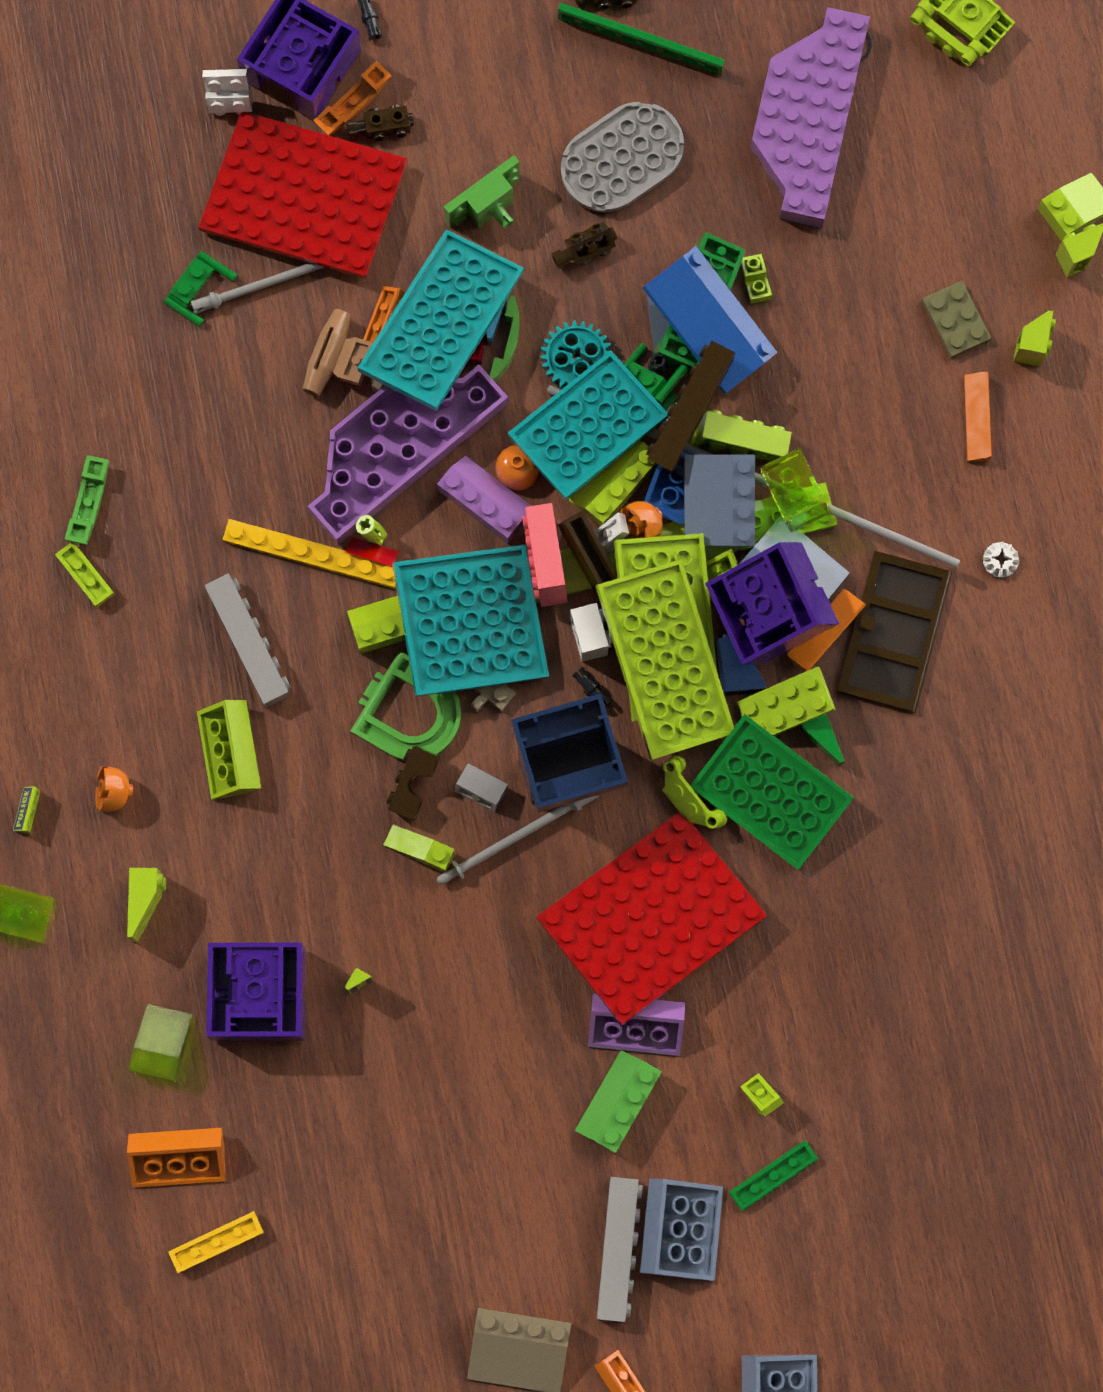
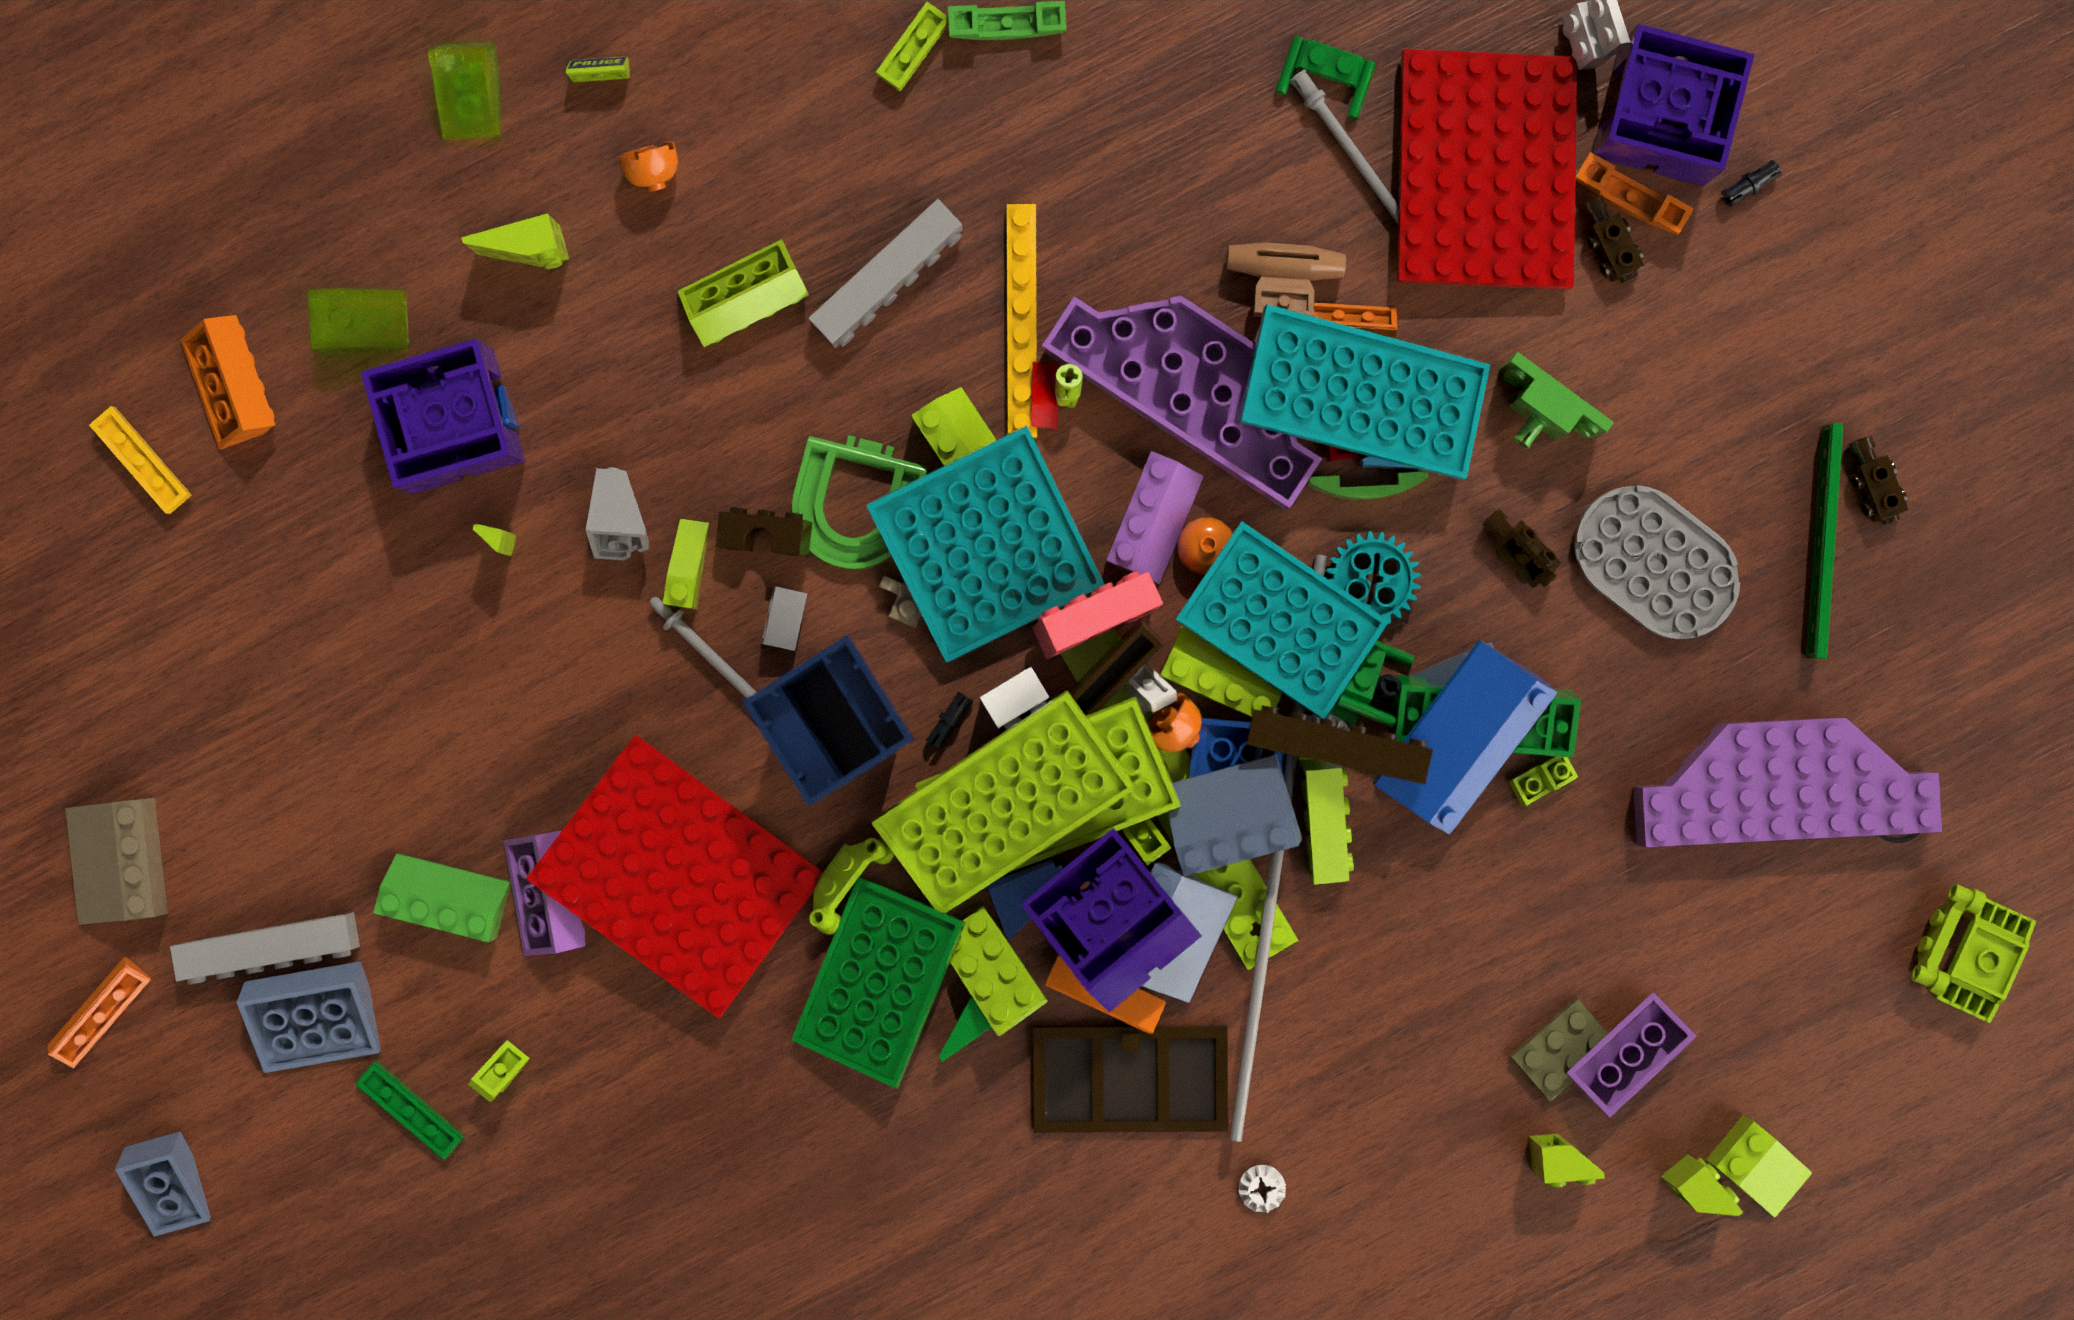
camera: 75 degrees right, 10 degrees up
(369, 887) = (614, 517): none -> light grey slope
(795, 490) = (1271, 907): clear neon green slope -> none
(972, 272) = (1631, 1055): none -> medium lavender slope
(977, 417) = (1441, 1111): orange slope -> none

